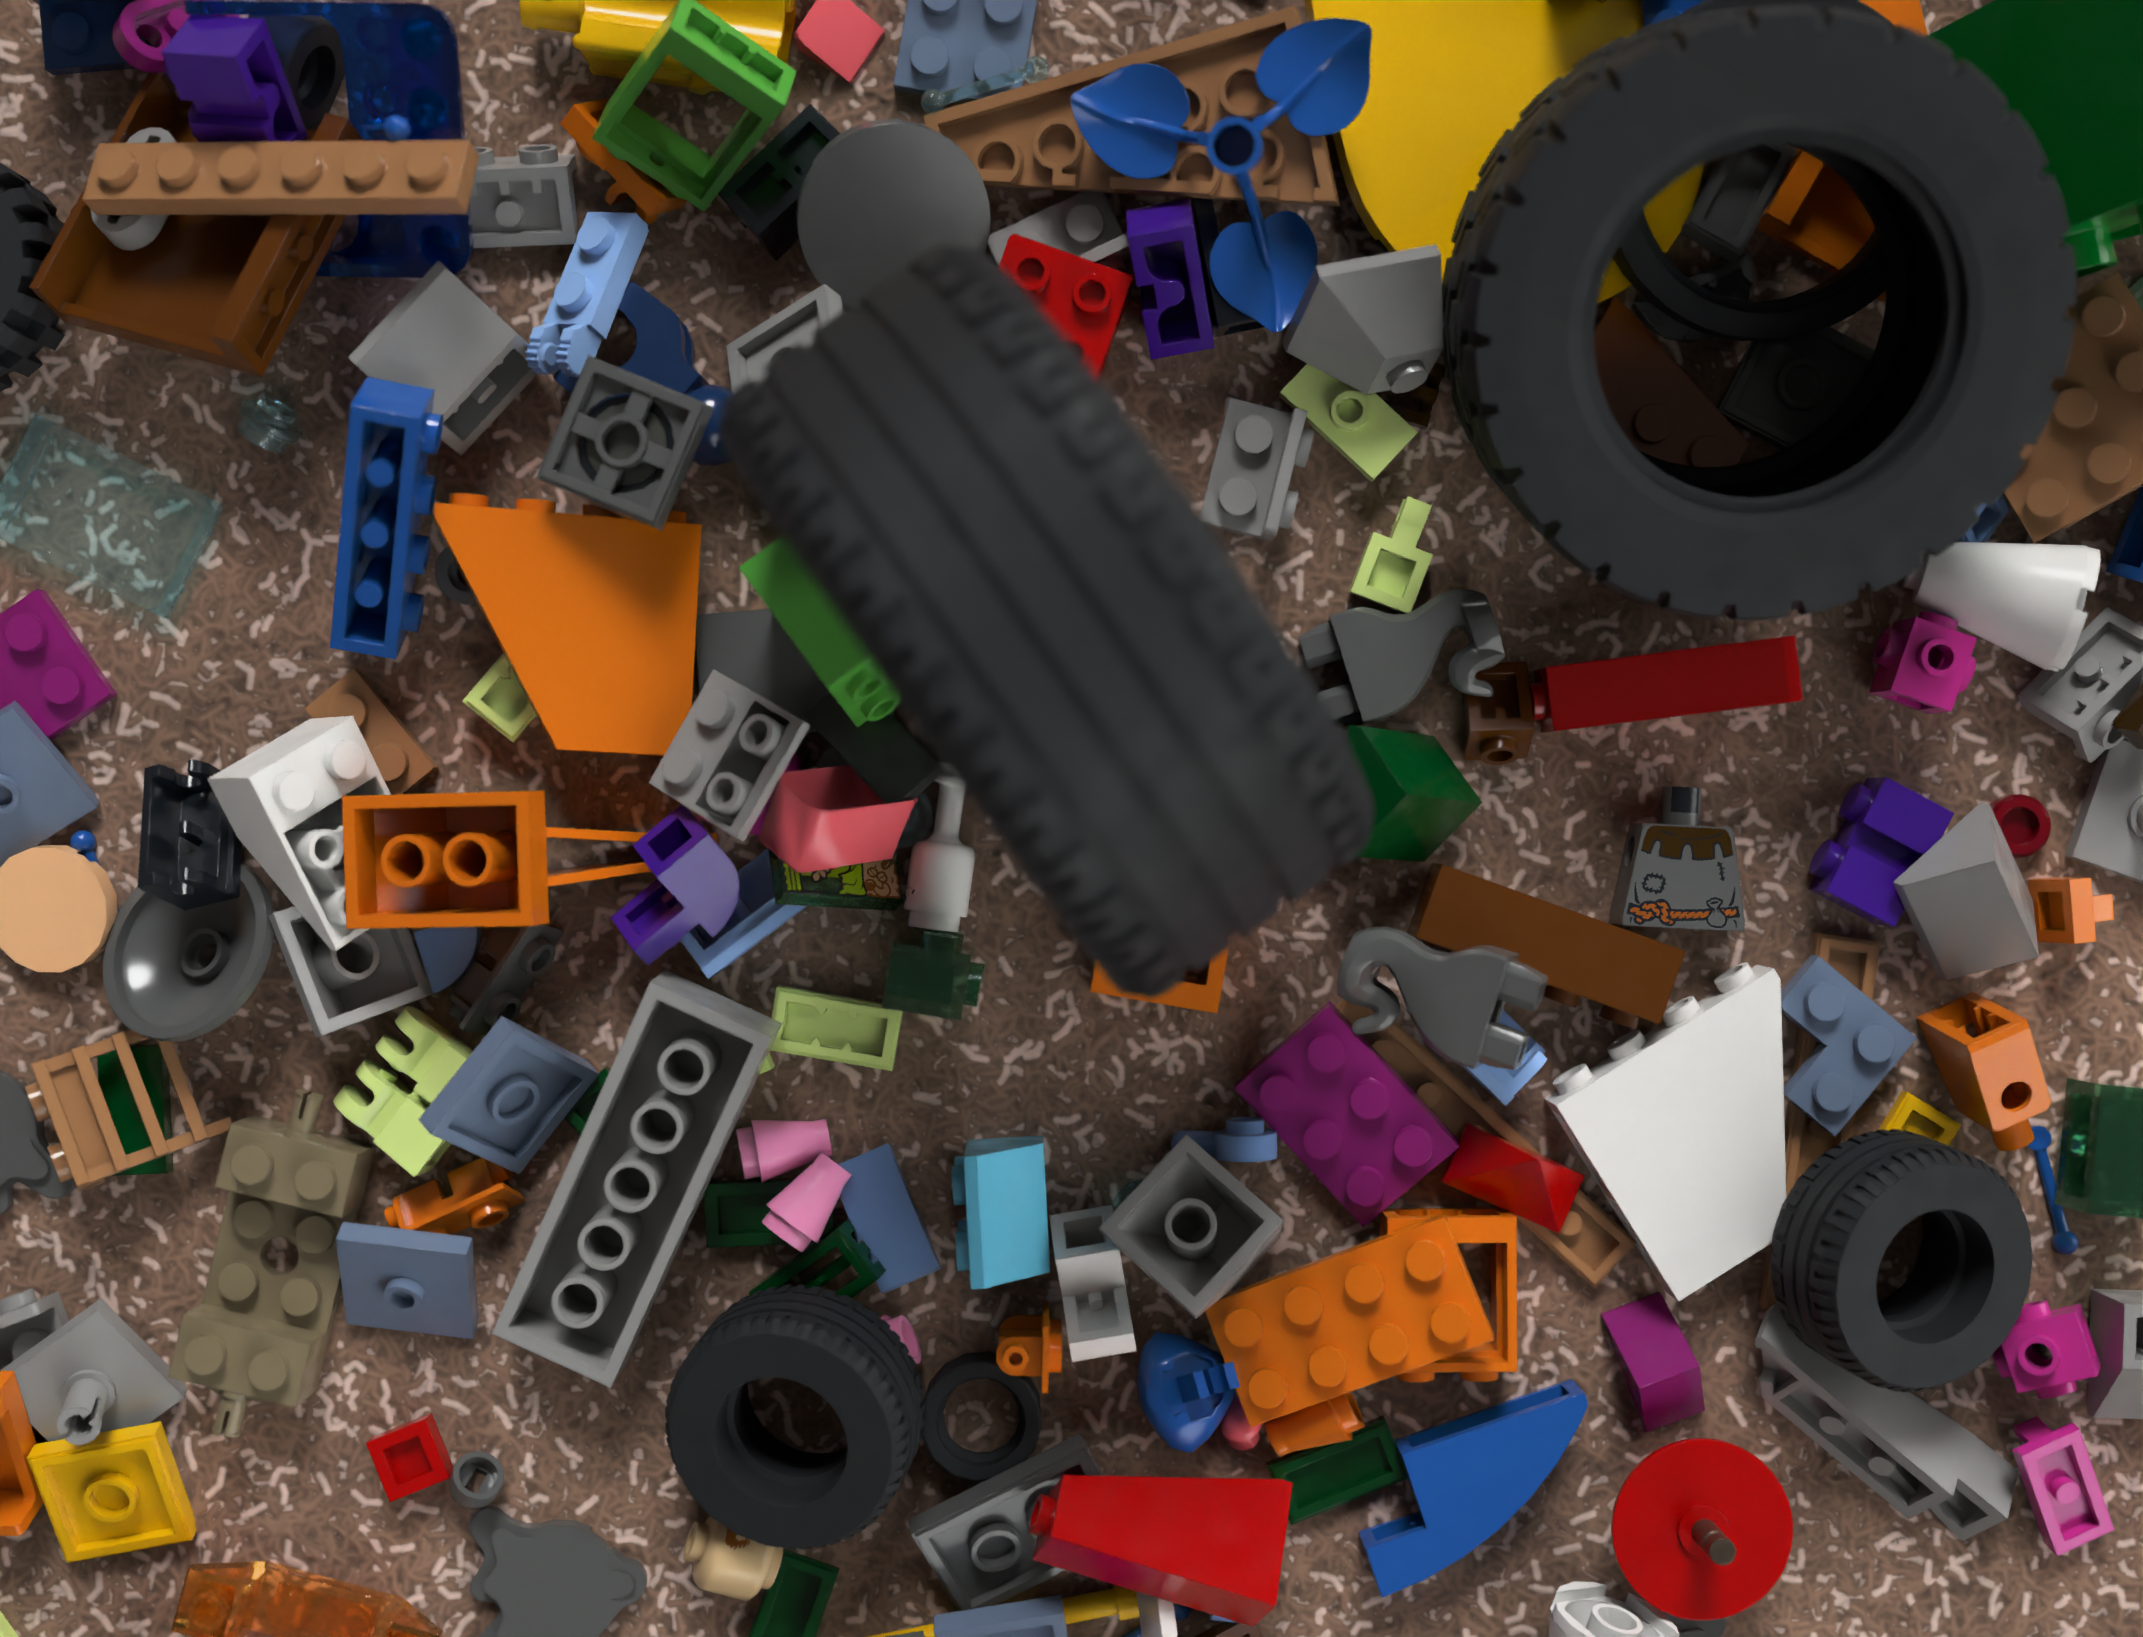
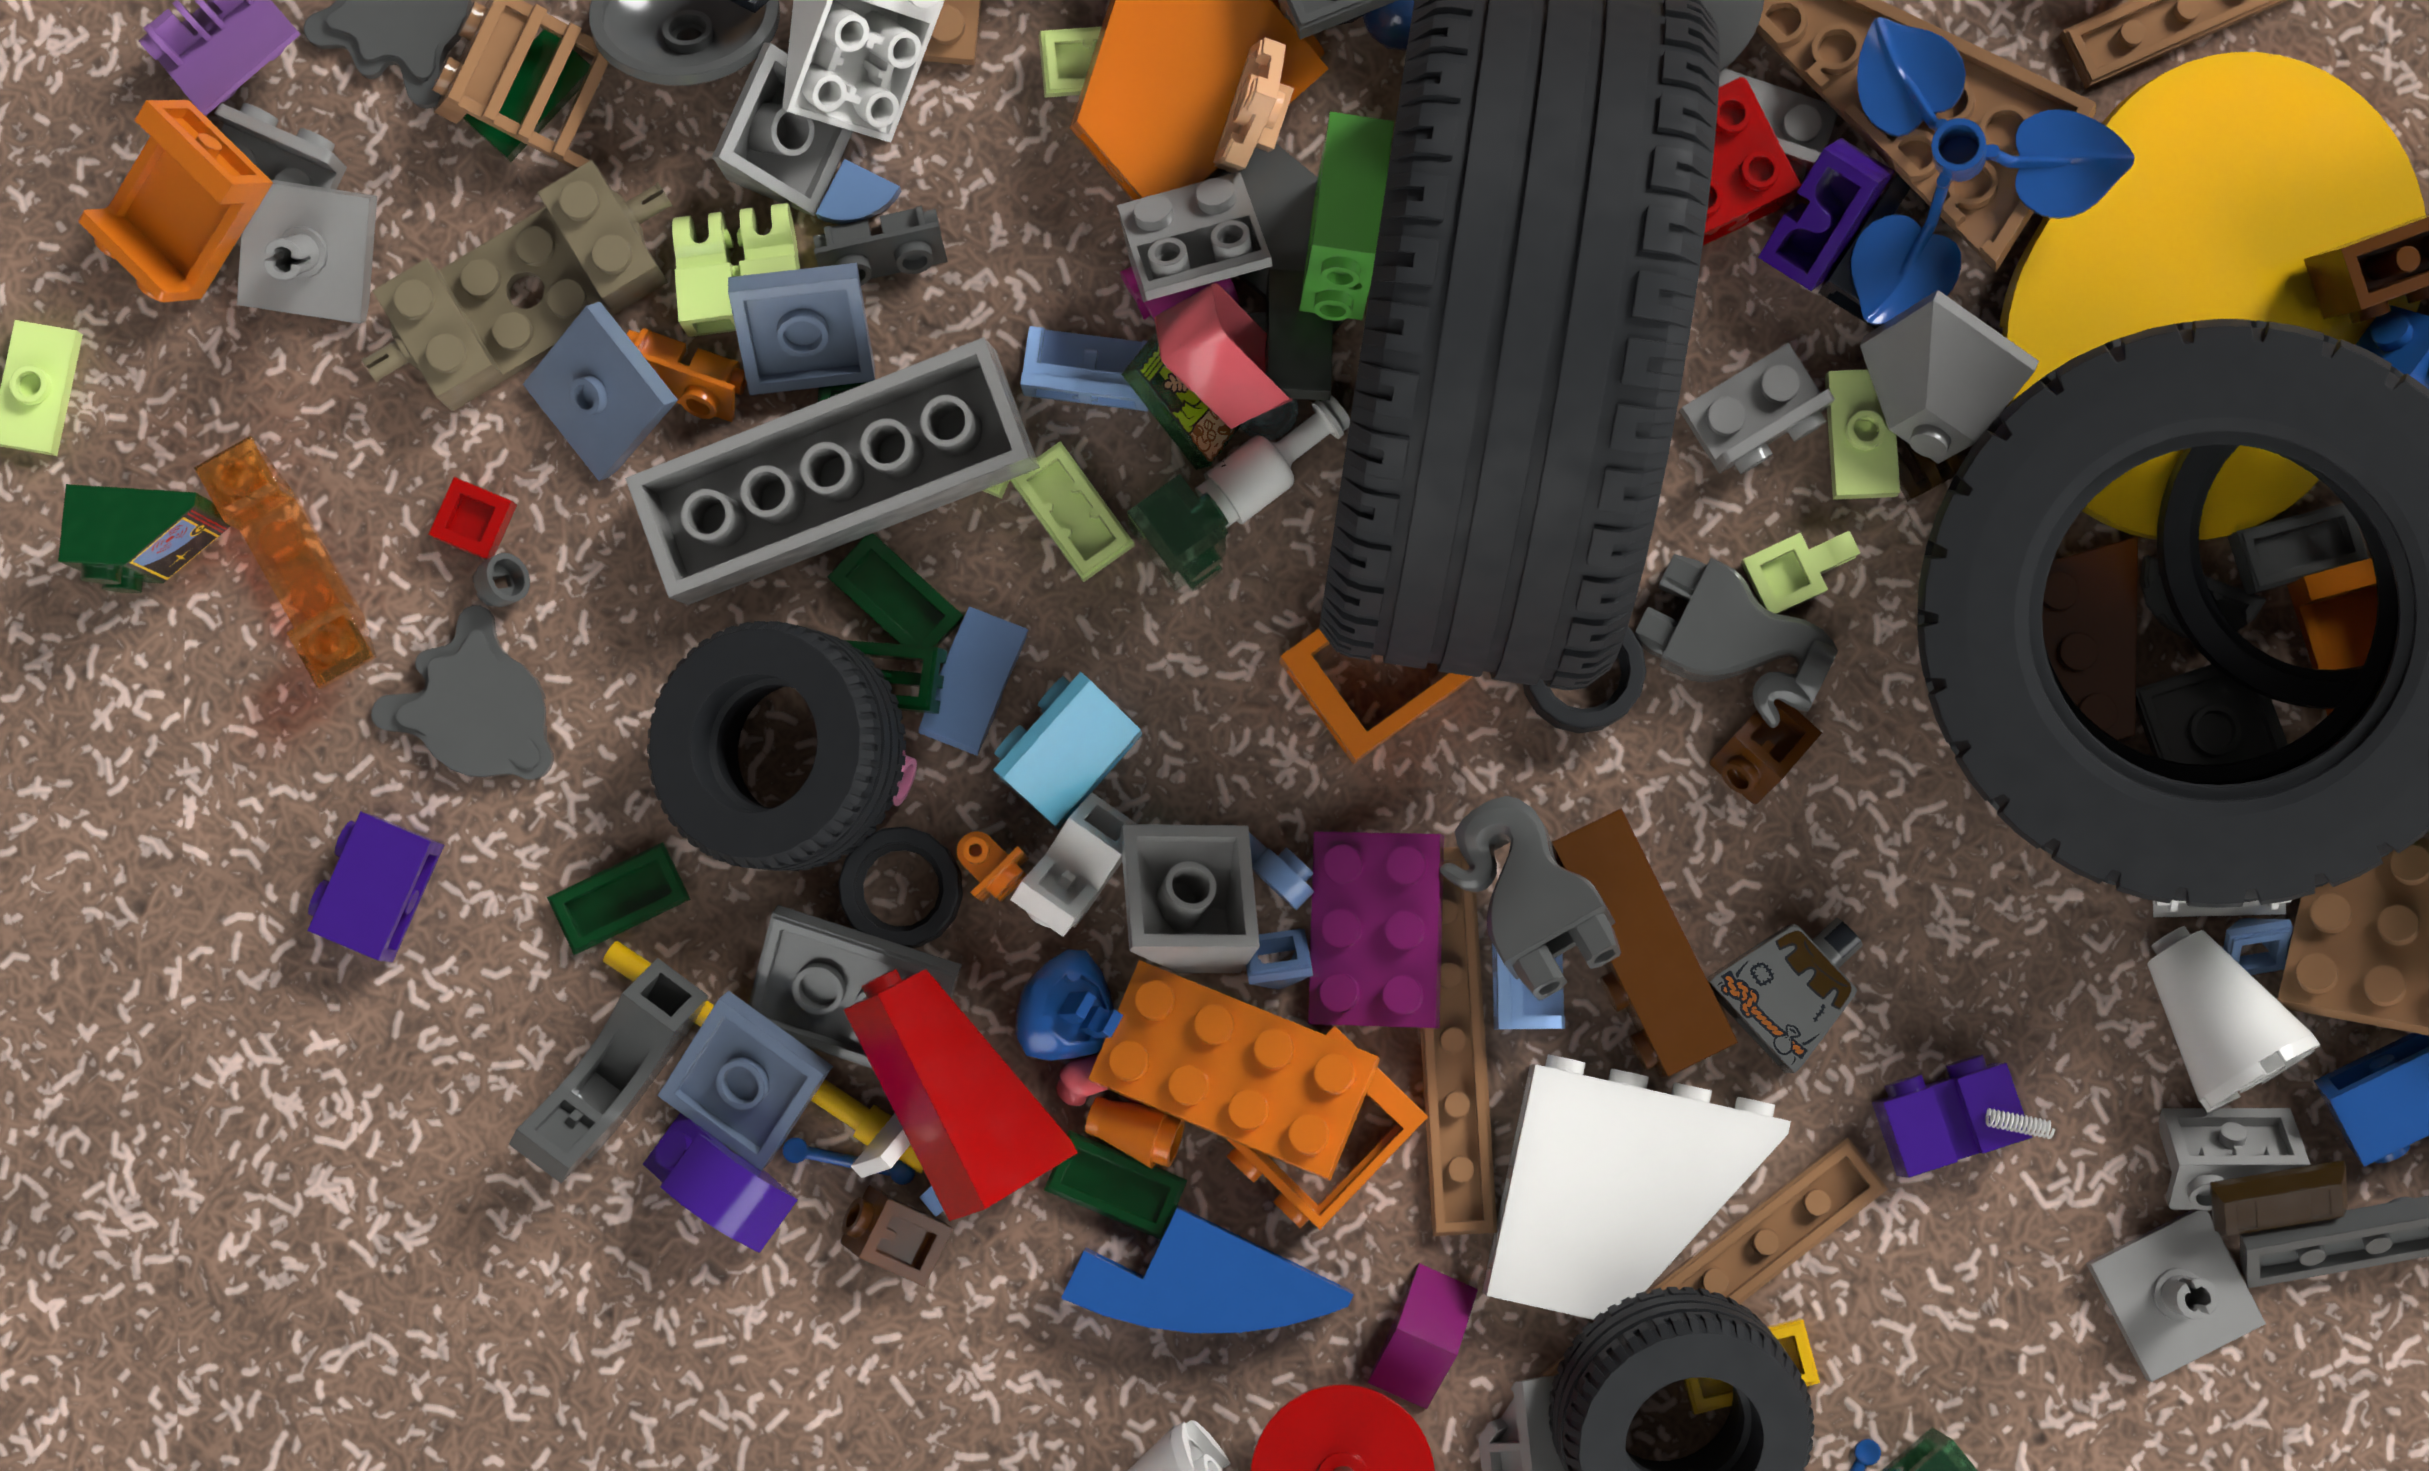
camera: 40 degrees right, 5 degrees down
(113, 1492) = (245, 339): yellow plate -> none
(458, 859) = (948, 142): orange slope -> none
(679, 611) = (1256, 107): none -> light nougat plate
(691, 888) = (1076, 309): dark purple brick -> none
(730, 1562) = (626, 811): tan head -> none
(780, 1146) = (951, 557): bright pink cone -> none
(806, 1203) = (931, 610): bright pink cone -> none
(1318, 1197) = (1283, 973): none -> medium blue slope
(1413, 790) = (1636, 734): dark green slope -> none
(1512, 1177) = (1453, 1093): red slope -> none
(1667, 684) = (1907, 842): red slope -> none
(1854, 1048) = (1798, 1241): sand blue plate -> none
(1923, 663) = (2092, 1015): dark pink brick -> none
(1938, 810) = (2021, 1121): none -> white leg
(1970, 900) = (1984, 1213): light grey slope -> none
(1988, 1076) = (1884, 1330): orange torso -> none
(2023, 823) = (2070, 1204): dark red tile -> none
(2068, 909) = (2049, 1297): orange tile -> none

